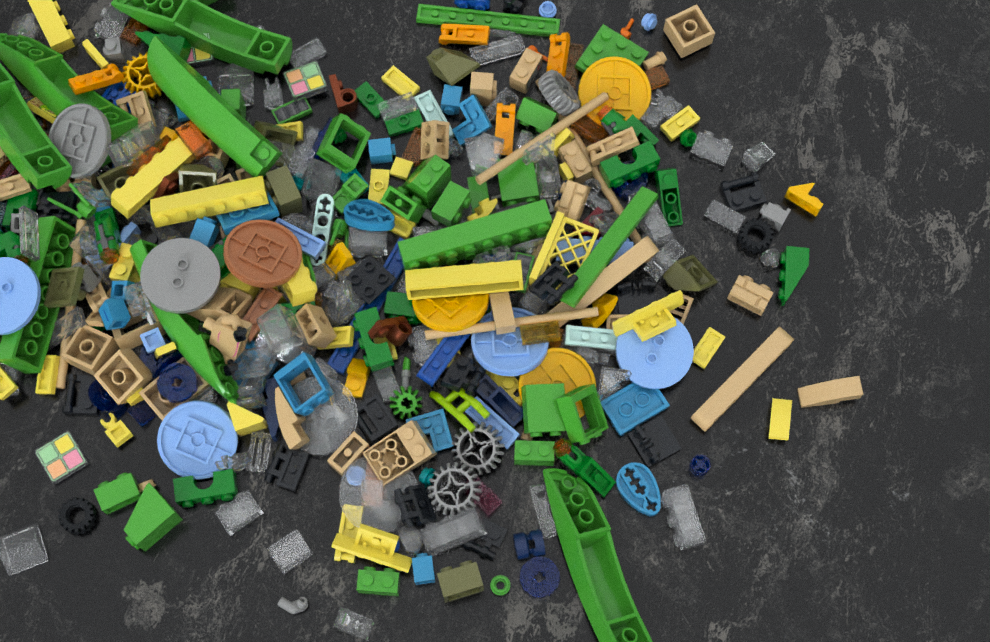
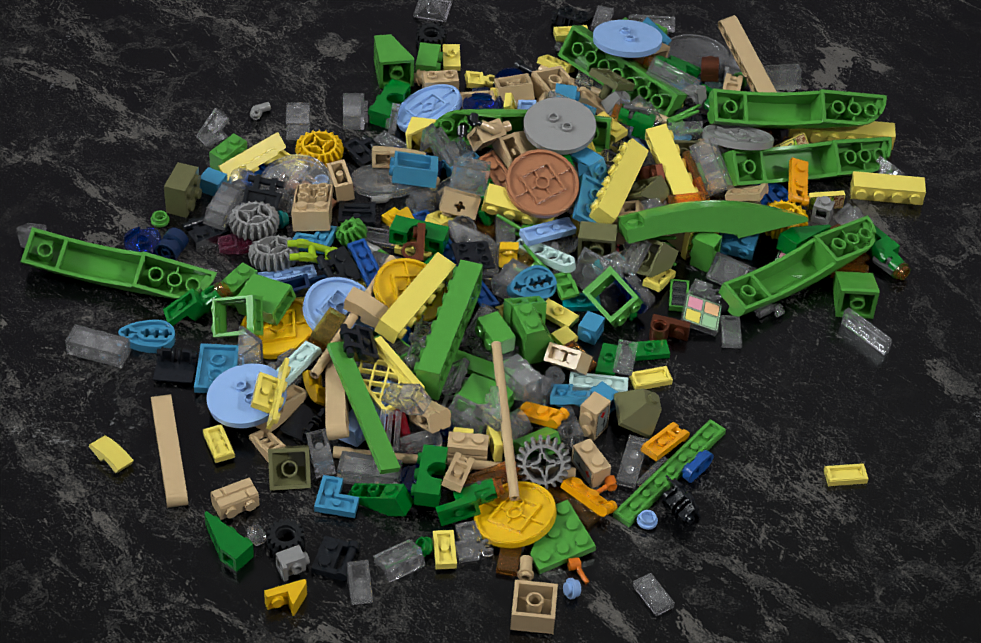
camera: 120 degrees right, 25 degrees down
(61, 457) = (485, 49): tile -> none
(89, 481) = (451, 57): none -> light yellow plate
(148, 458) = (440, 77): none -> tan brick
(309, 514) = (320, 145): none -> yellow gear
(485, 208) = (470, 348): light yellow slope -> none
(581, 215) = (407, 398): none -> clear slope
(696, 229) = (331, 501): none -> dark azure plate
(702, 462) = (127, 380): clear blue wheel -> none
(725, 216) = (324, 527): clear tile -> none
(830, 392) = (97, 502): tan slope -> none

